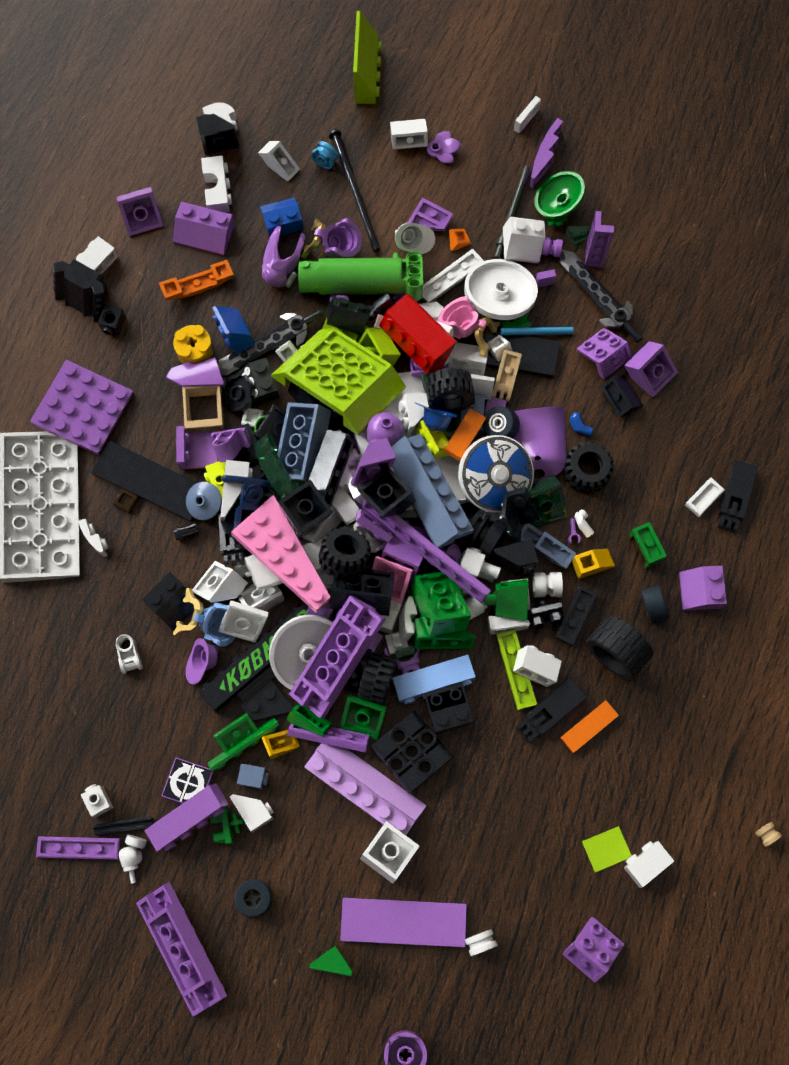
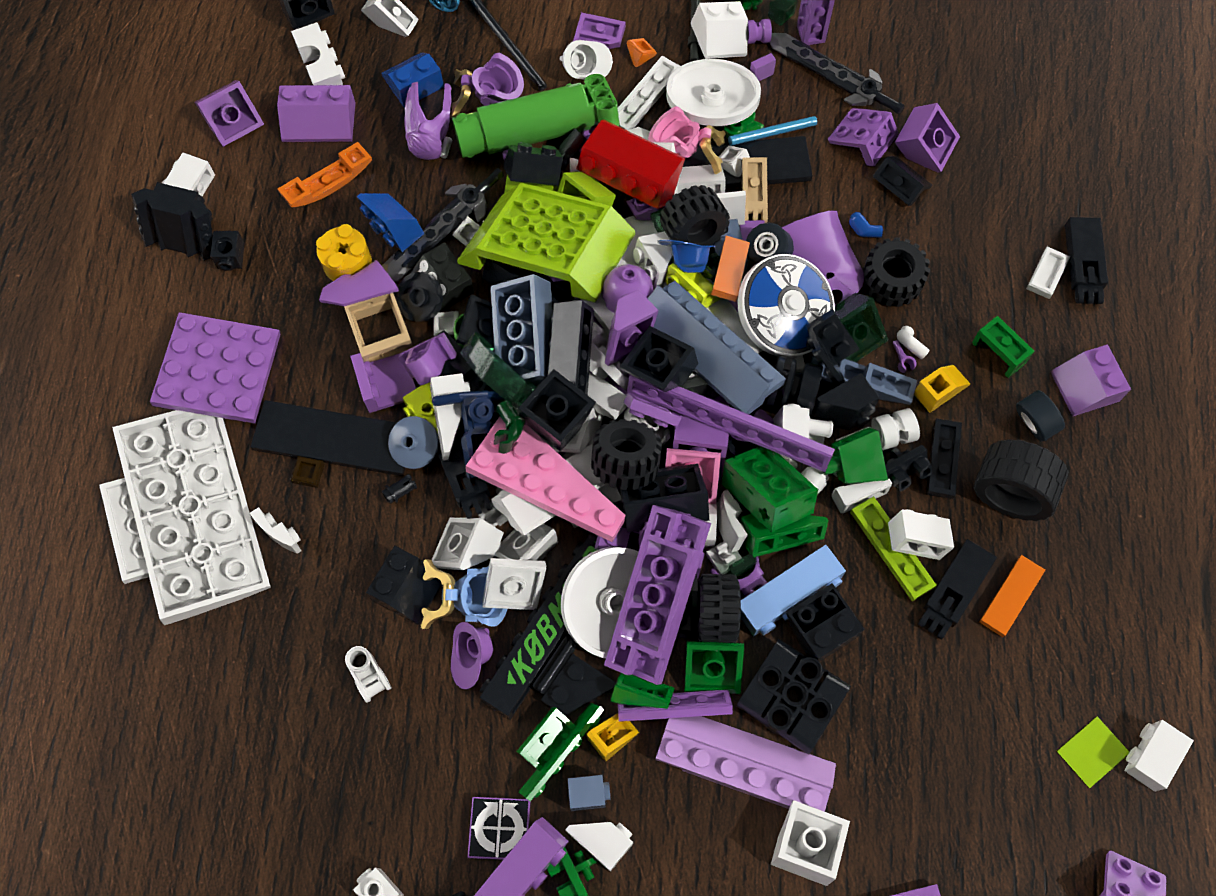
camera: 15 degrees left, 5 degrees down
(272, 512) = (513, 427): none -> dark green piece

